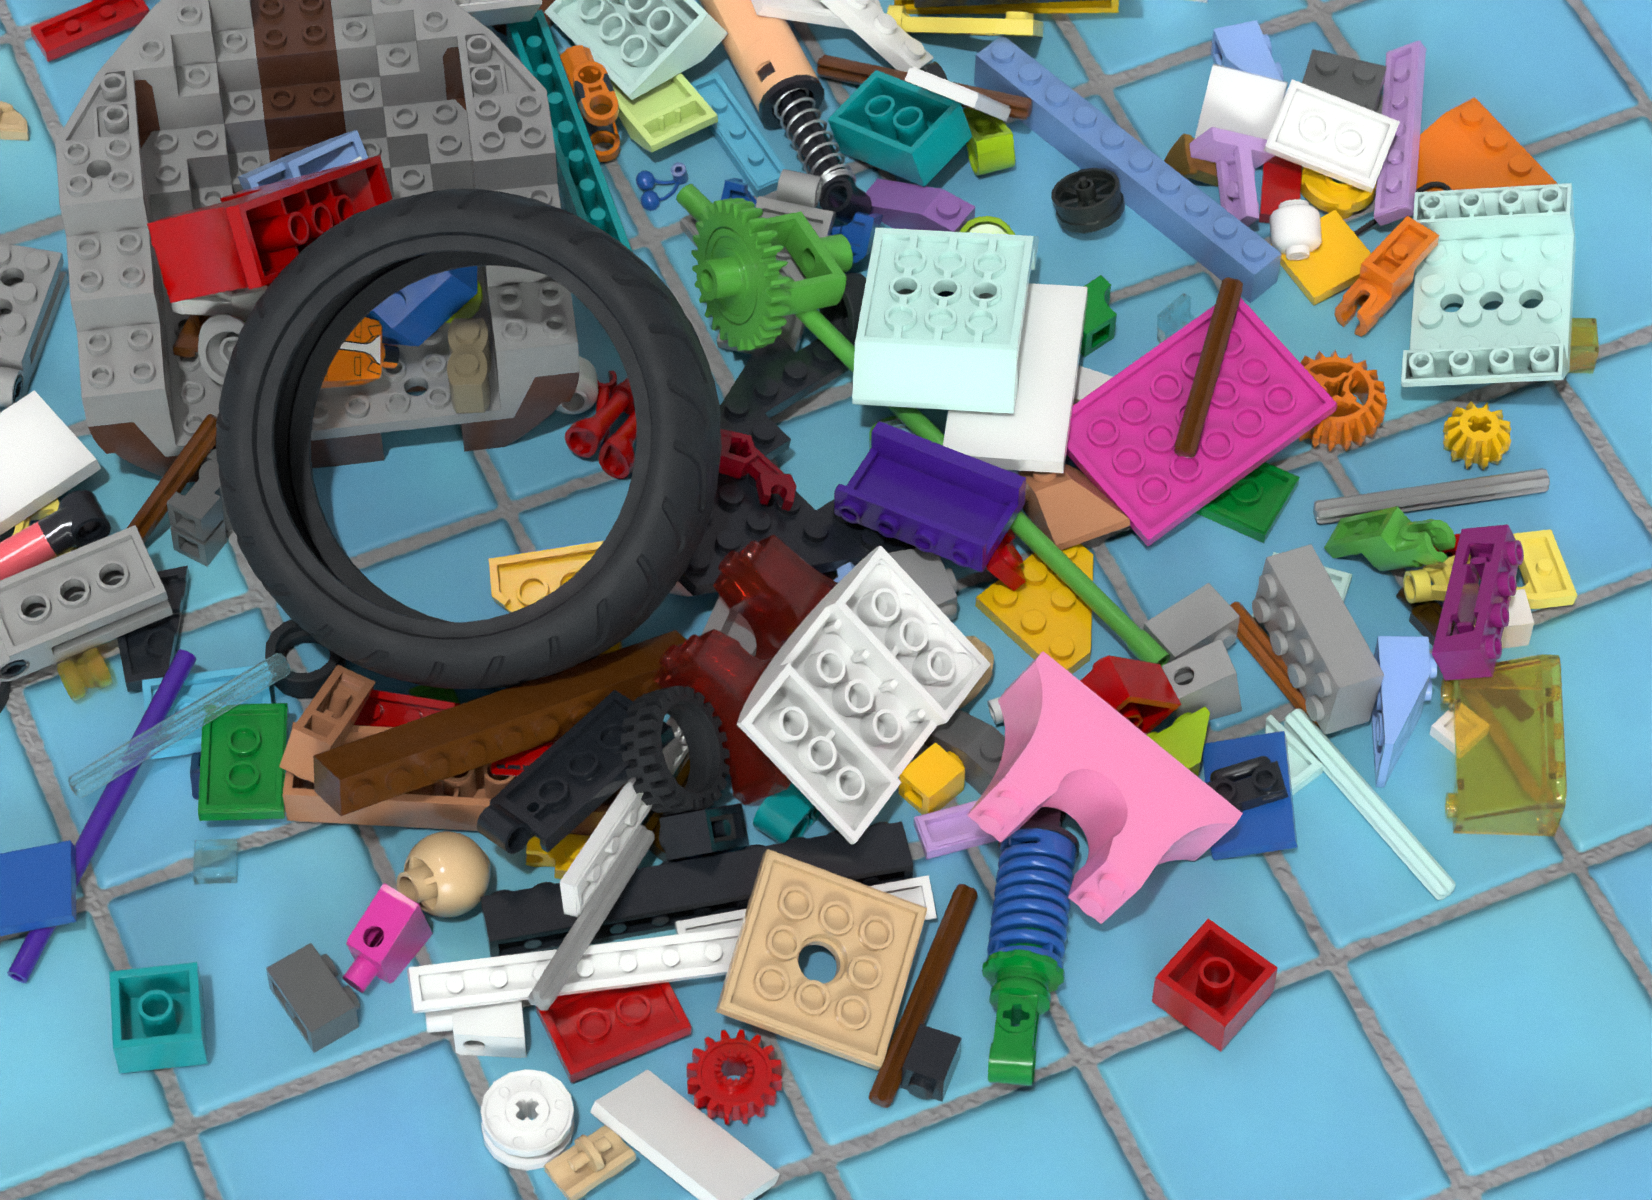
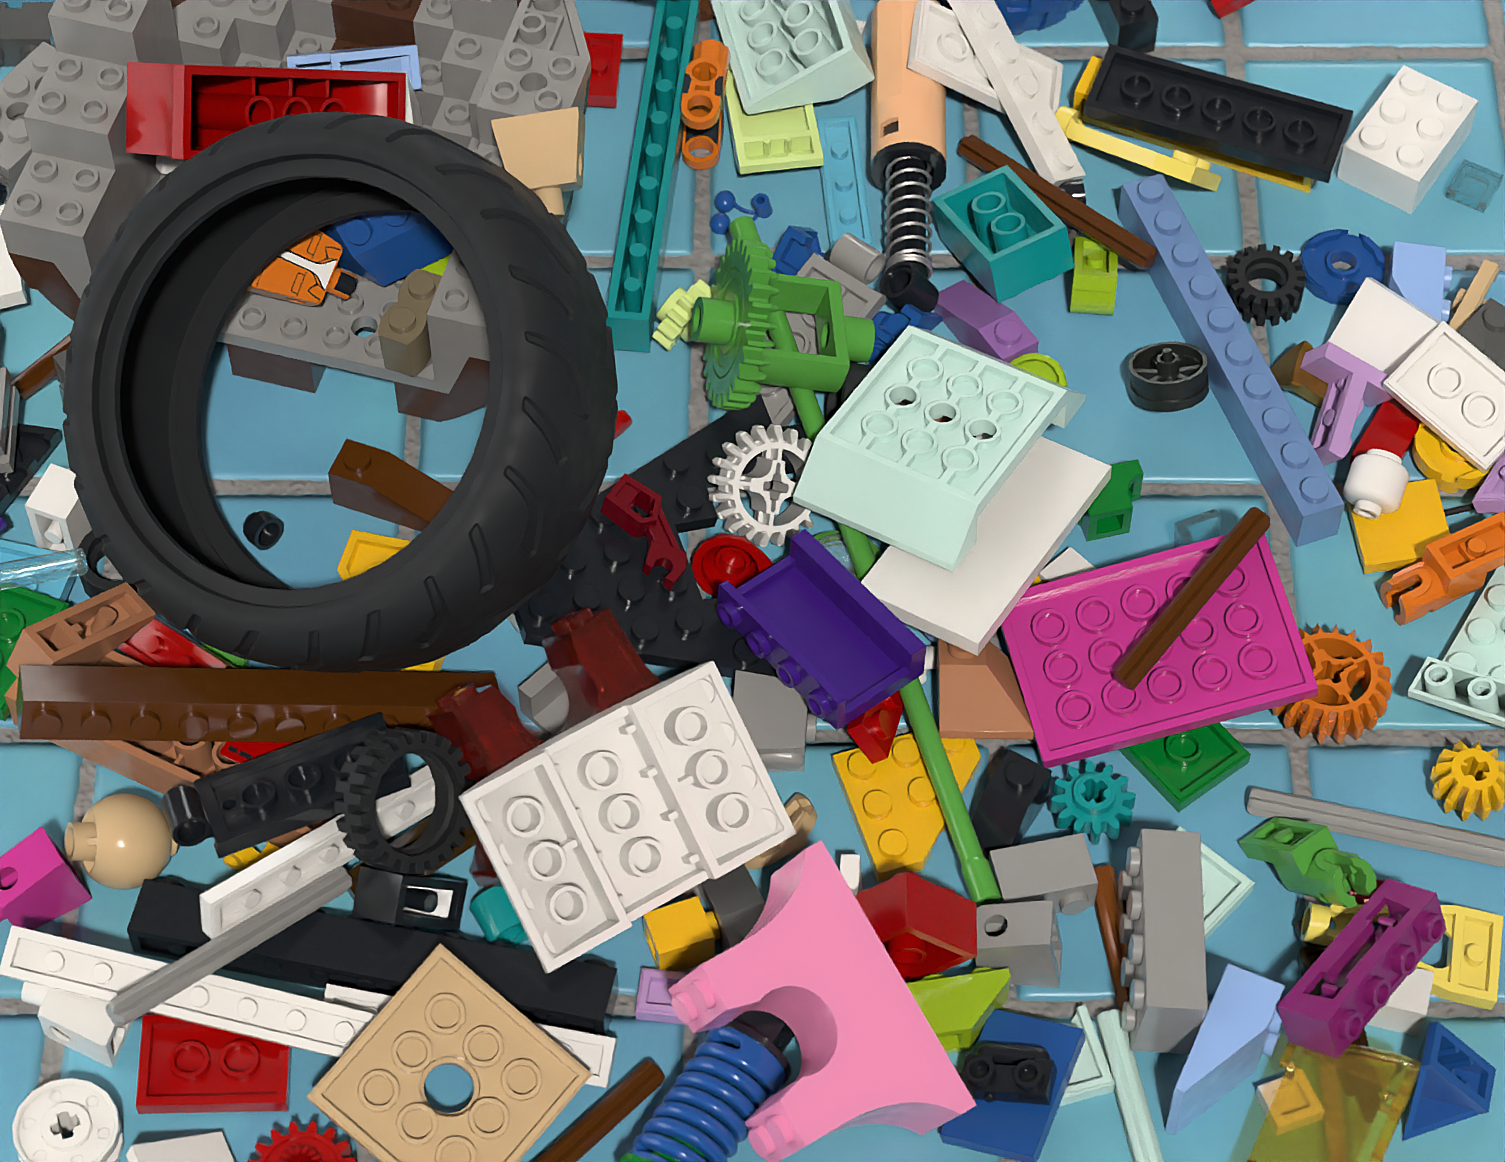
camera: 25 degrees right, 0 degrees up
(241, 628) = (56, 511): none -> white brick
(407, 586) = (262, 529): none -> black hinge
(506, 515) = (385, 486): none -> reddish brown slope
(552, 175) = (544, 152): none -> tan torso
(676, 275) = (677, 315): none -> yellowish green gear
(816, 399) = (764, 502): none -> white gear
(819, 473) = (729, 559): none -> red piece
(958, 93) = (1069, 215): white tile -> none
(1130, 84) = (1268, 266): none -> black tyre
(1137, 579) = (1010, 802): none -> black slope
(1175, 81) = (1339, 246): none -> blue tile
(1199, 558) = (1107, 805): none -> teal gear
(1293, 59) = (1471, 300): none -> tan plate
(1580, 664) = (1450, 1083): none -> blue slope

